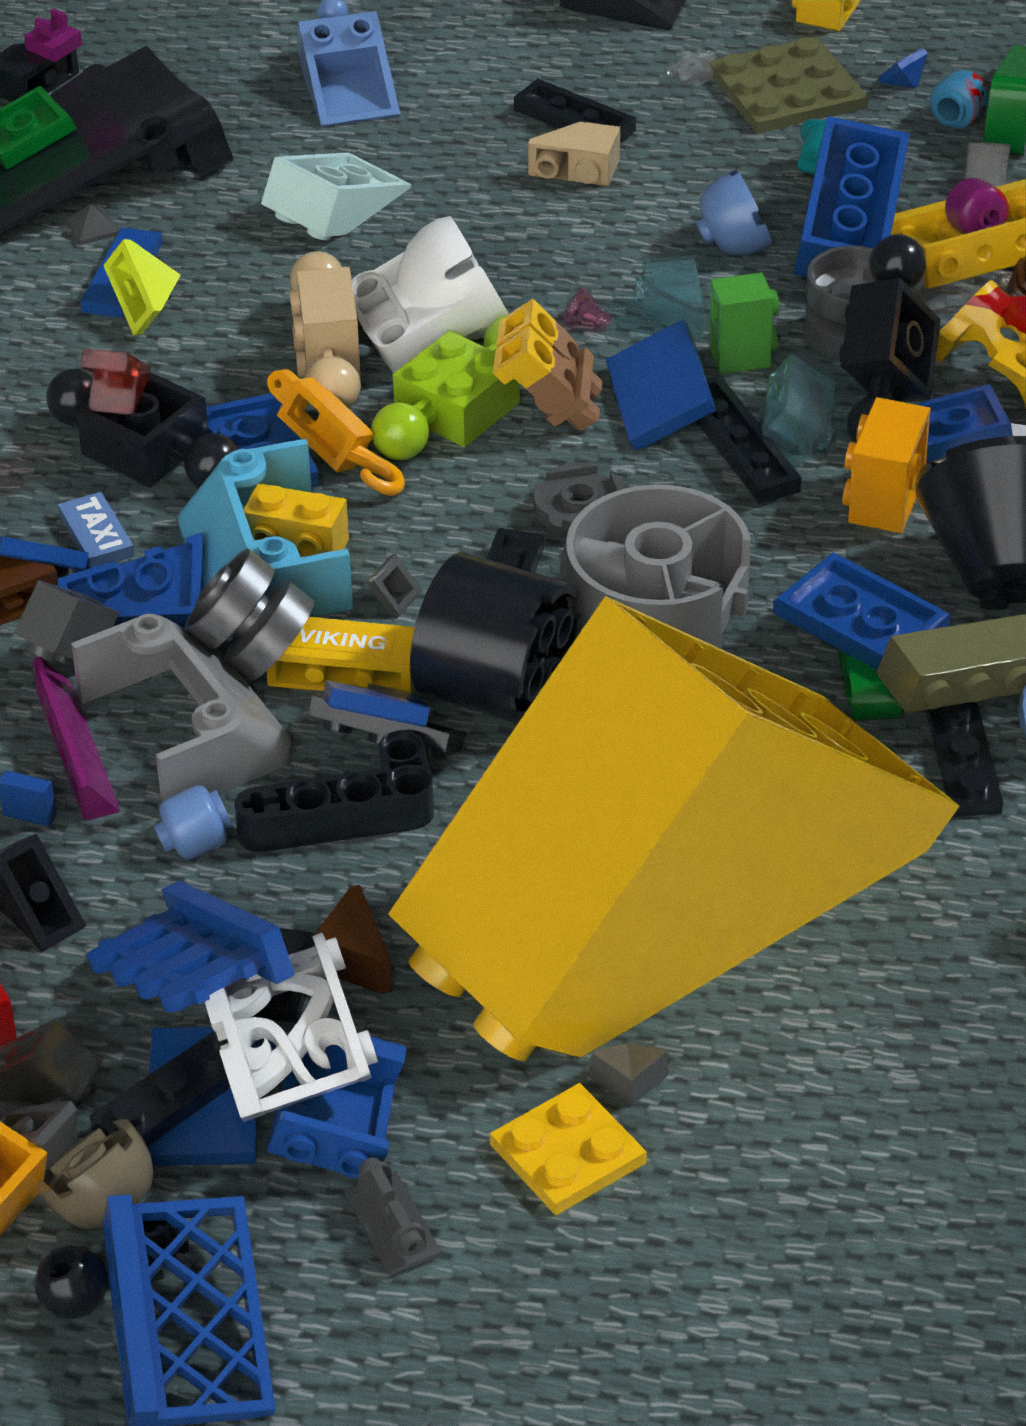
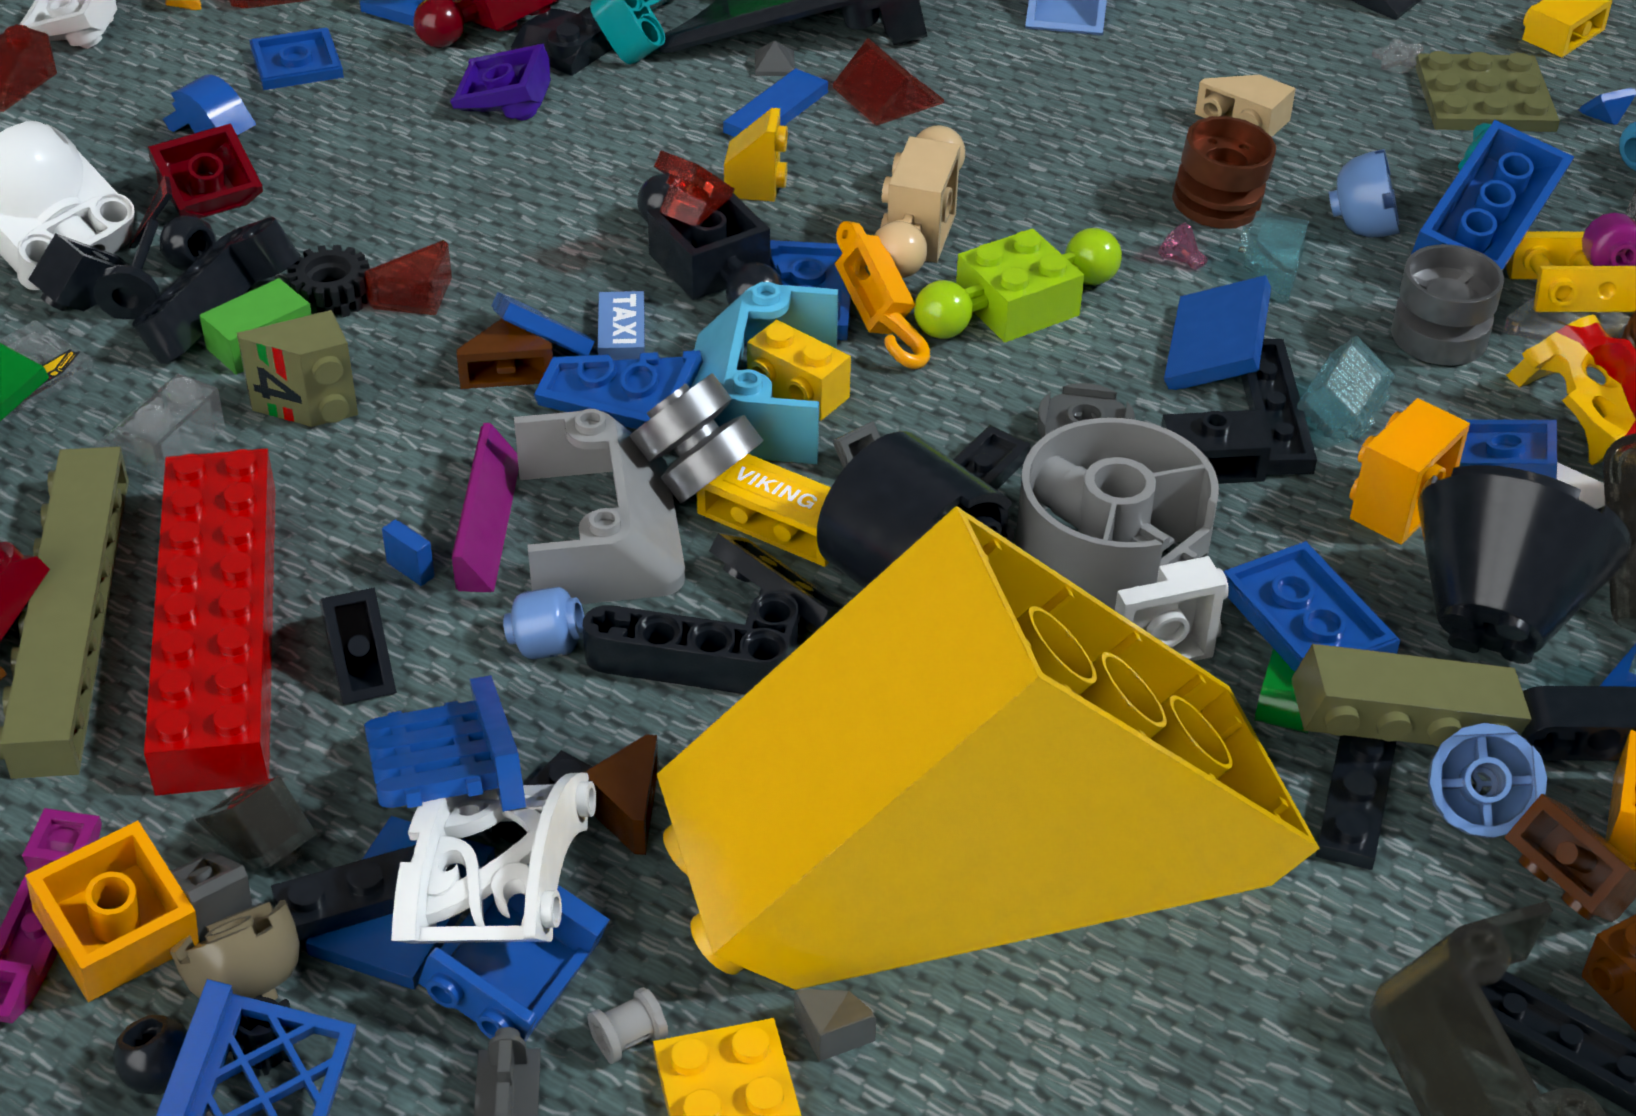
camera: 20 degrees right, 0 degrees up
(59, 618) = (522, 388): dark grey brick -> none
(139, 283) = (793, 110): neon yellow slope -> none
(143, 328) = (754, 159): none -> yellow slope
(217, 224) = (883, 86): none -> clear red slope
(329, 192) = (997, 82): light aqua slope -> none
(377, 702) = (782, 562): blue tile -> none
(425, 294) = (1031, 188): white piece -> none
(462, 1127) = (627, 1024): none -> light grey bush
(548, 366) = (1110, 285): hips -> none
(564, 108) = (1250, 57): black plate -> none
(594, 228) = (1223, 172): none -> copper wheel
(721, 475) = (1229, 439): none -> black brick
(742, 322) = (1325, 294): bright green brick -> none
(759, 632) = (1180, 607): none -> white plate
(890, 330) = (1467, 338): black brick -> none

